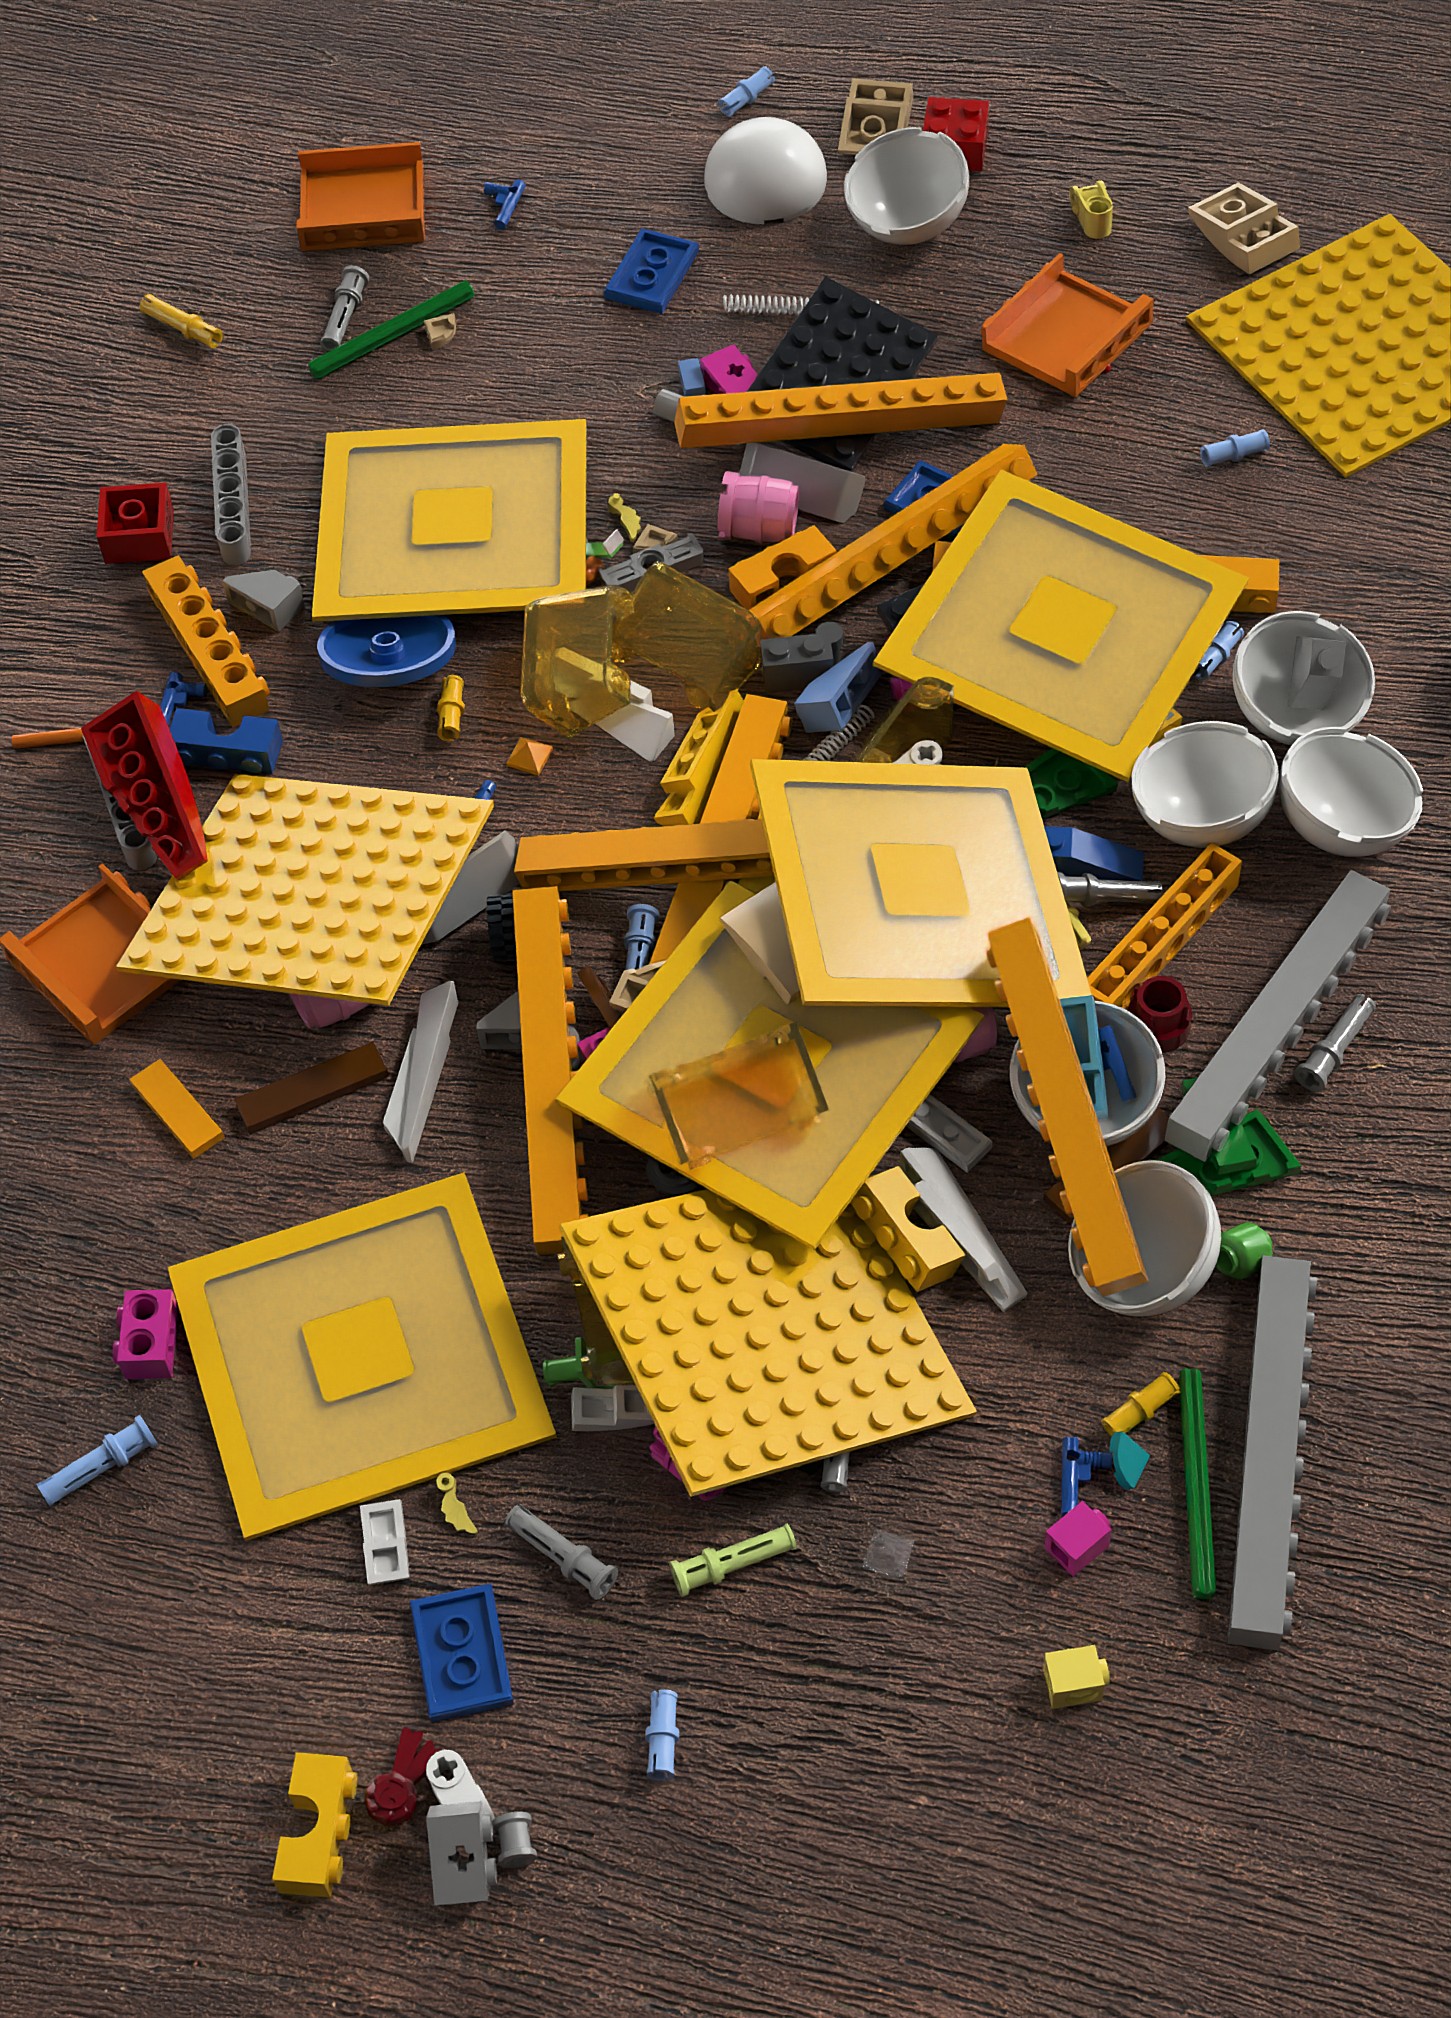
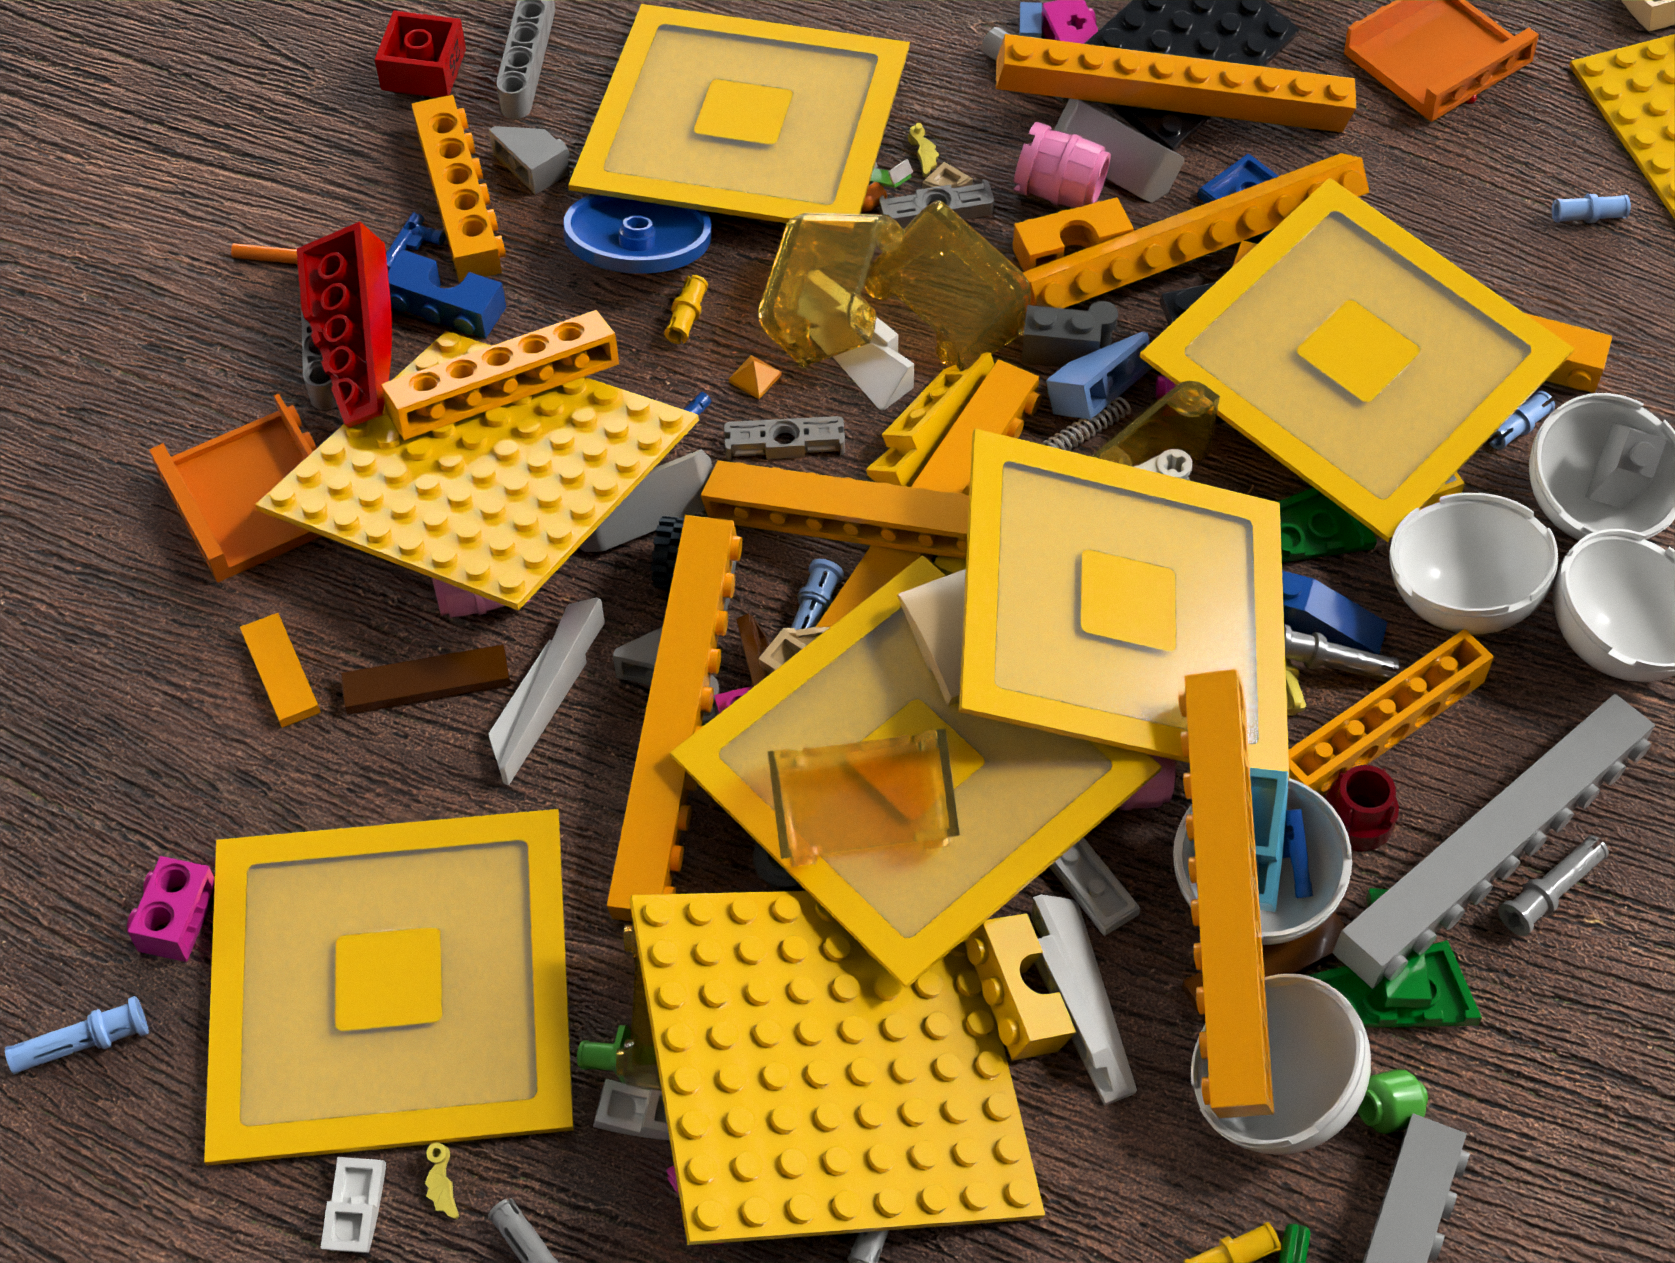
camera: 10 degrees right, 0 degrees up
(304, 802) = (500, 374): none -> light orange brick
(549, 811) = (810, 435): none -> light grey piece

